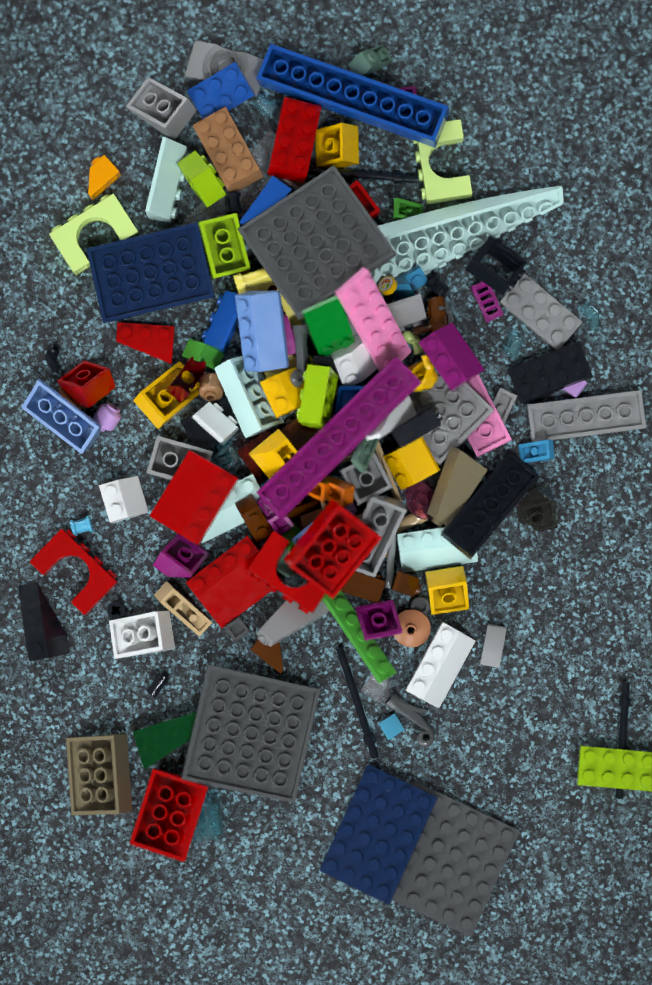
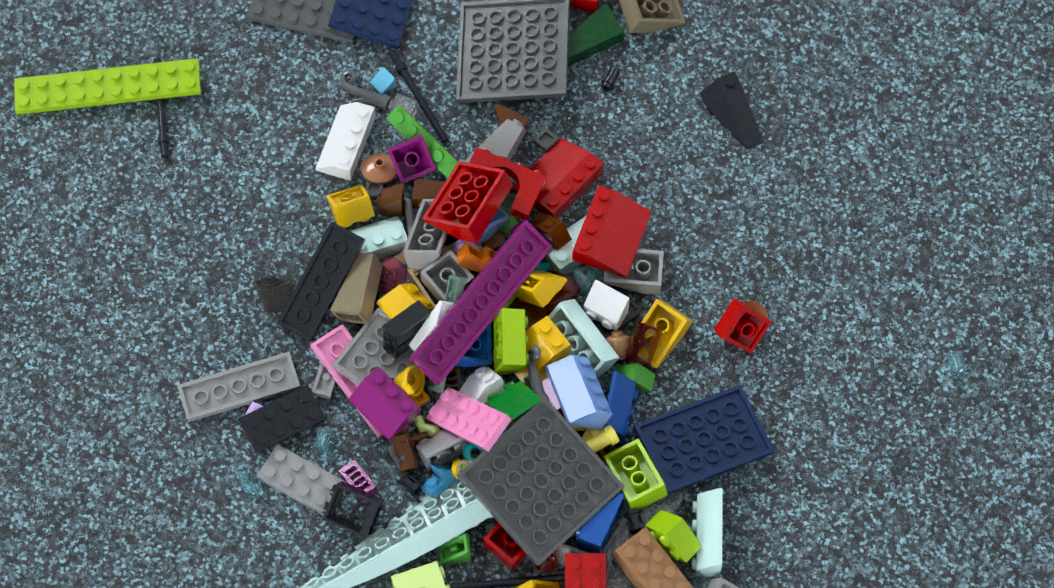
camera: 165 degrees right, 20 degrees down
(51, 357) = (784, 349): black arm -> none
(61, 417) = (758, 288): medium blue slope -> none
(67, 236) = (761, 495): yellowish green arch -> none
(81, 525) = (715, 201): medium azure bush -> none
(100, 579) = (725, 180): red arch -> none
(101, 176) = (777, 530): light orange slope -> none
(107, 416) = (715, 301): lavender head -> none
(110, 610) = (663, 134): black bush -> none
(123, 499) = (681, 231): white slope -> none
(142, 634) = (634, 117): white slope -> none
(149, 339) = (690, 383): red wing -> none
(180, 558) = (614, 179): magenta slope -> none
(182, 608) = (604, 146): tan slope -> none
(322, 361) = (512, 374): black plate -> none
(493, 645) = (297, 166): light grey slope -> none
(536, 451) = (283, 342): dark azure slope -> none

